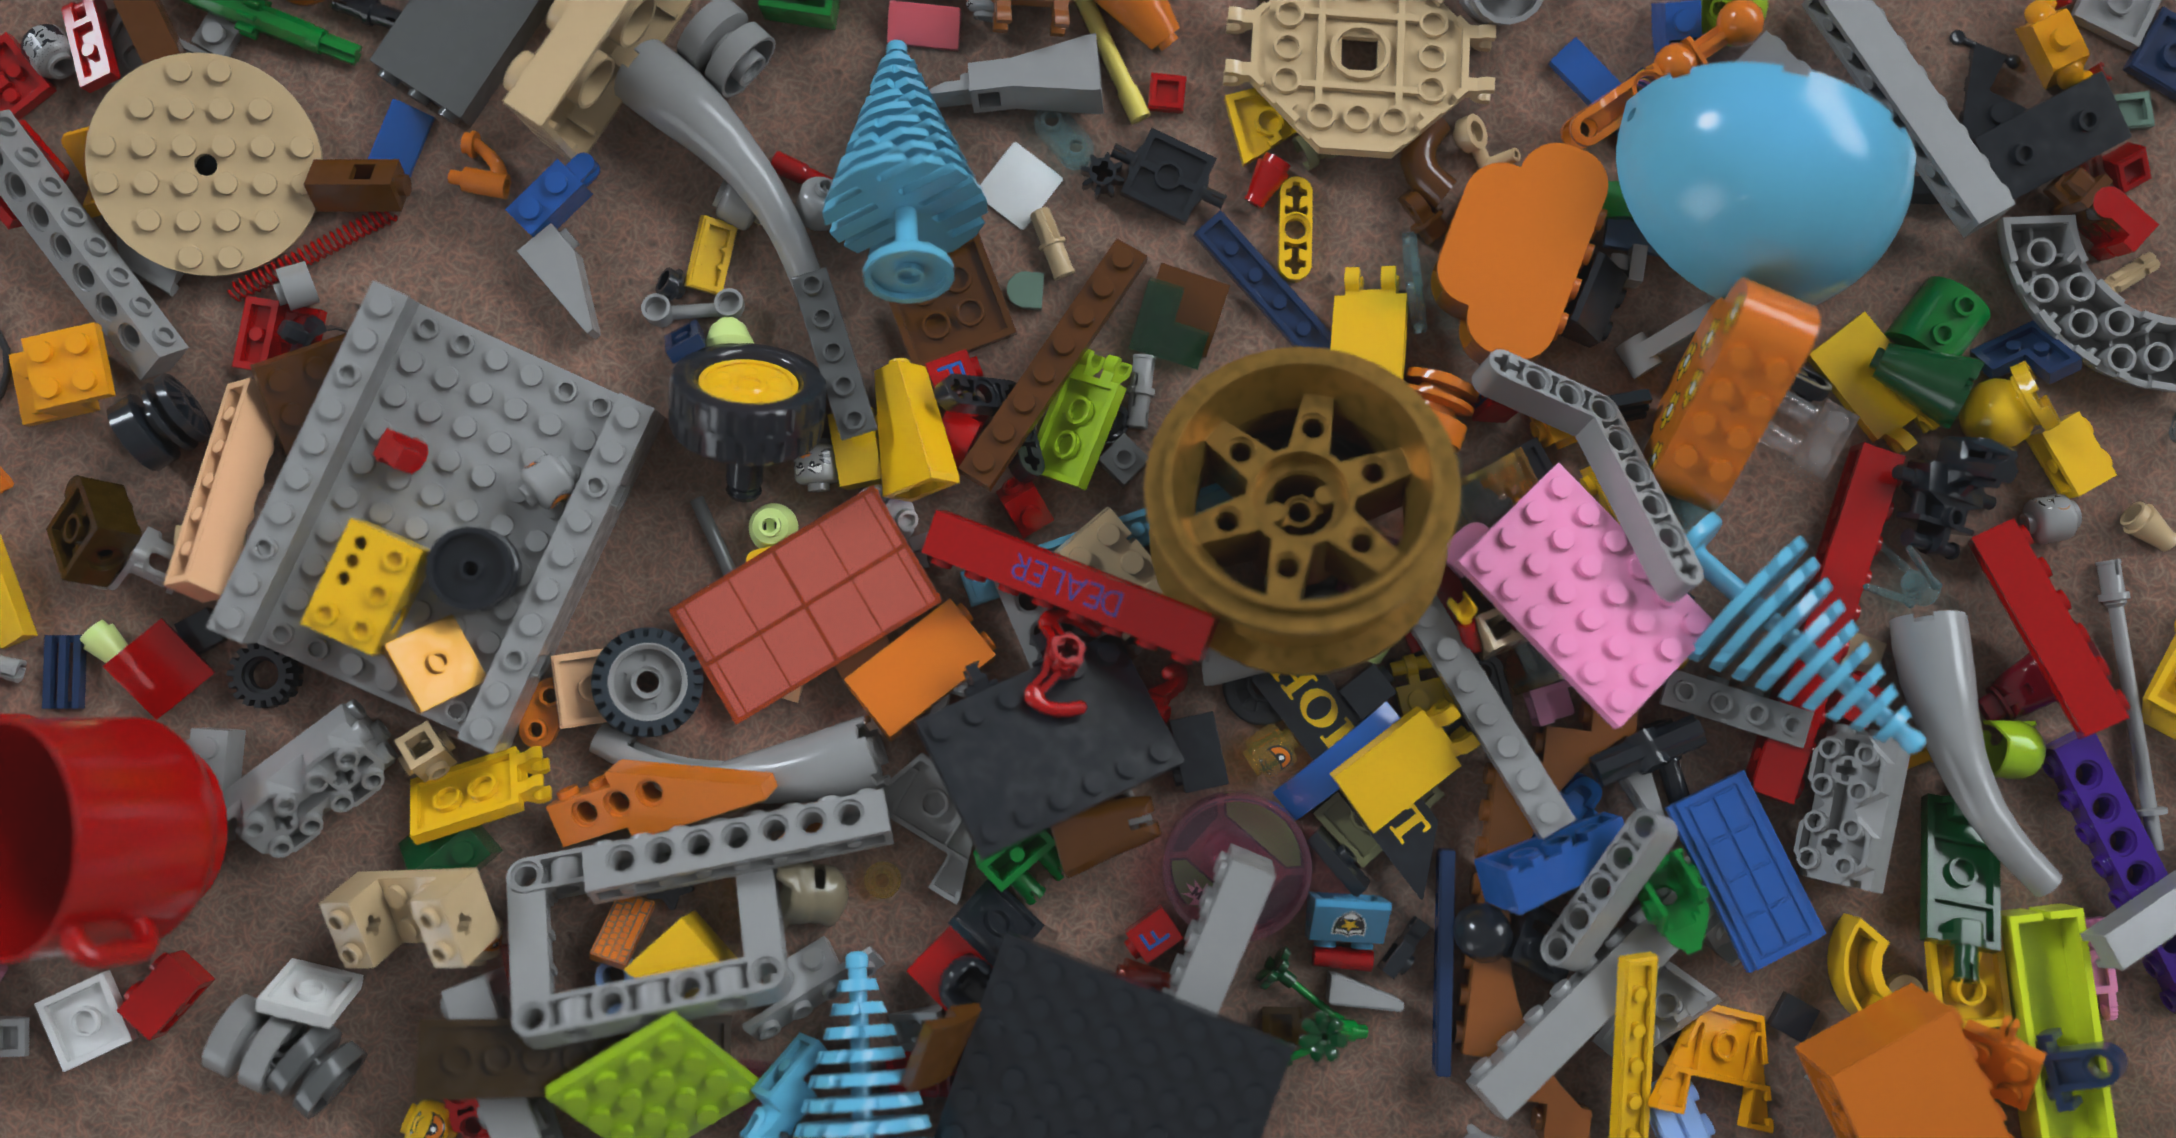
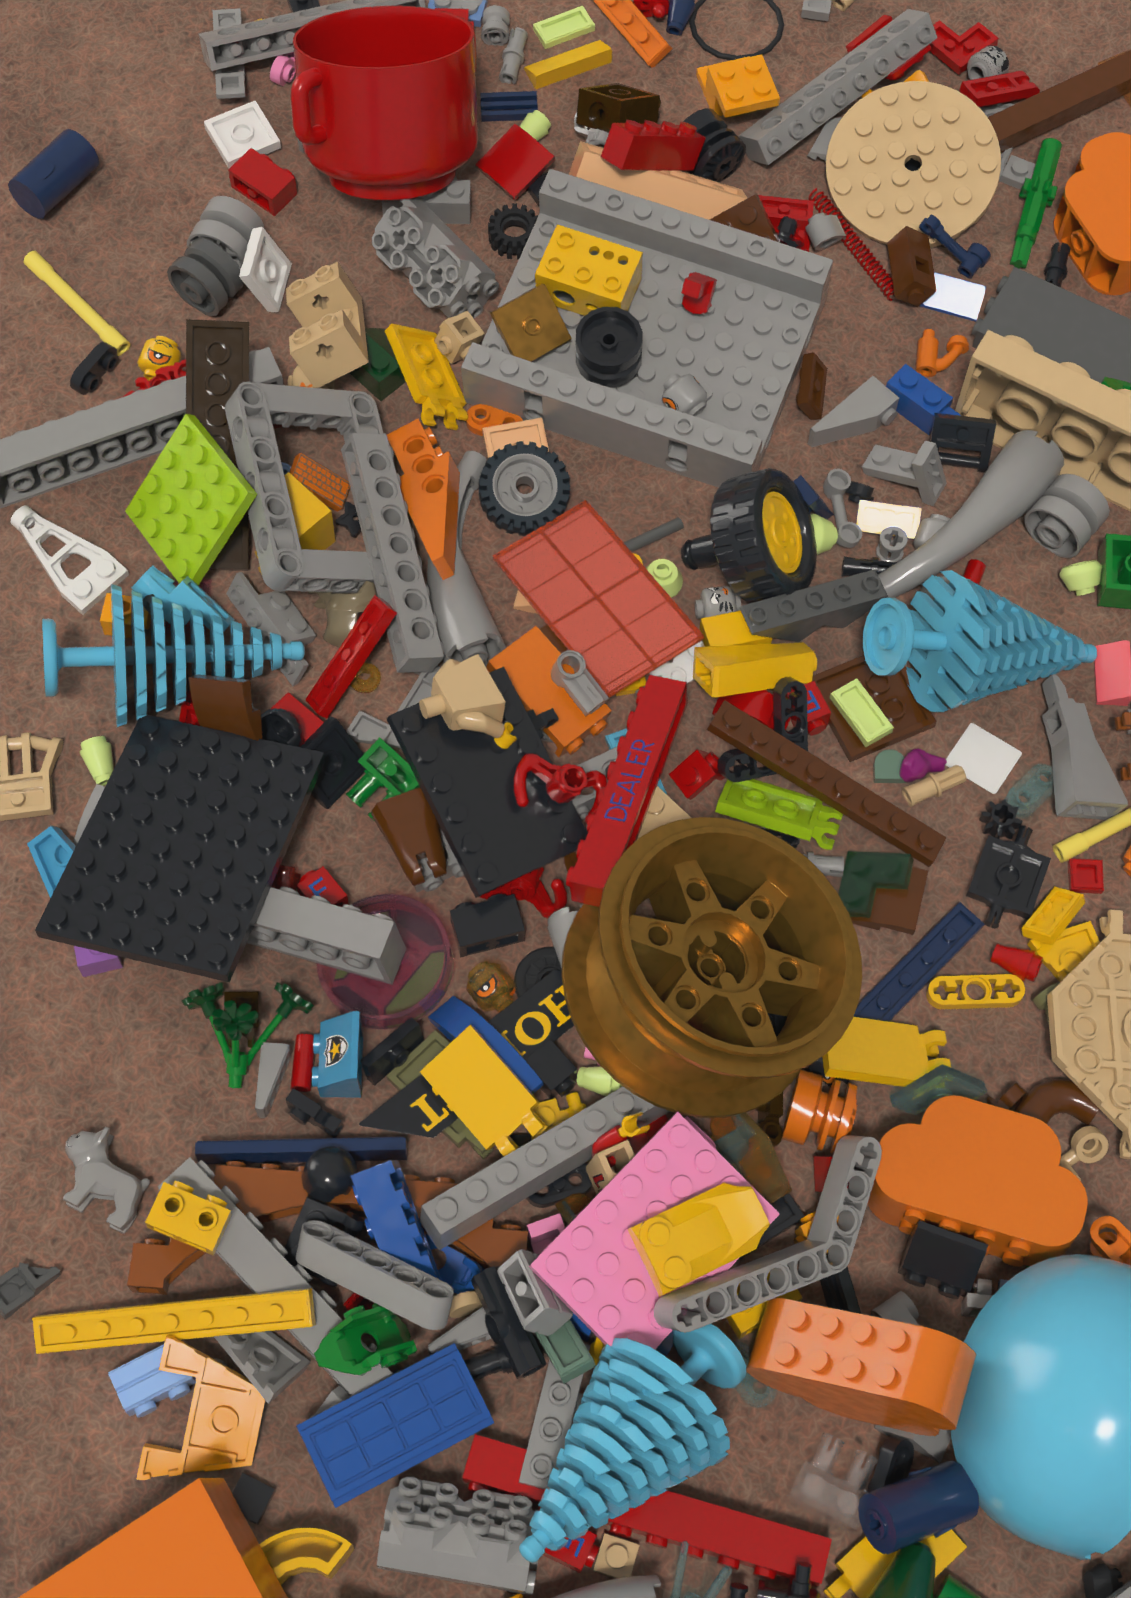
camera: 90 degrees right, 20 degrees down
(177, 492) = (653, 146): none -> red brick
(346, 111) = (971, 260): none -> dark blue brick
(520, 325) = (812, 386): none -> reddish brown plate
(608, 155) = (964, 434): none -> black plate
(645, 225) = (912, 469): none -> light grey bracket
(742, 245) = (898, 543): none -> light grey bush
(774, 286) = (854, 566): none -> black pin
(800, 42) = (1082, 576): none -> yellowish green cone
(868, 896) = (350, 656): none -> red tile
(926, 632) = (581, 684): none -> light grey piece
(965, 314) = (861, 712): none -> yellowish green tile
(967, 766) = (468, 700): none -> tan torso
(1028, 256) = (919, 763): none -> magenta animal
(1217, 134) = (1053, 915): none -> yellow plate
(1548, 1086) = (189, 1217): none -> yellow brick
(1592, 549) = (699, 1235): none -> yellow slope
(1613, 798) = (464, 1304): none -> tan tile
(1644, 728) = (531, 1298): none -> light grey brick
(1679, 696) = (567, 1352): none -> sand green tile
(1850, 357) = (918, 1507): none -> dark blue piece

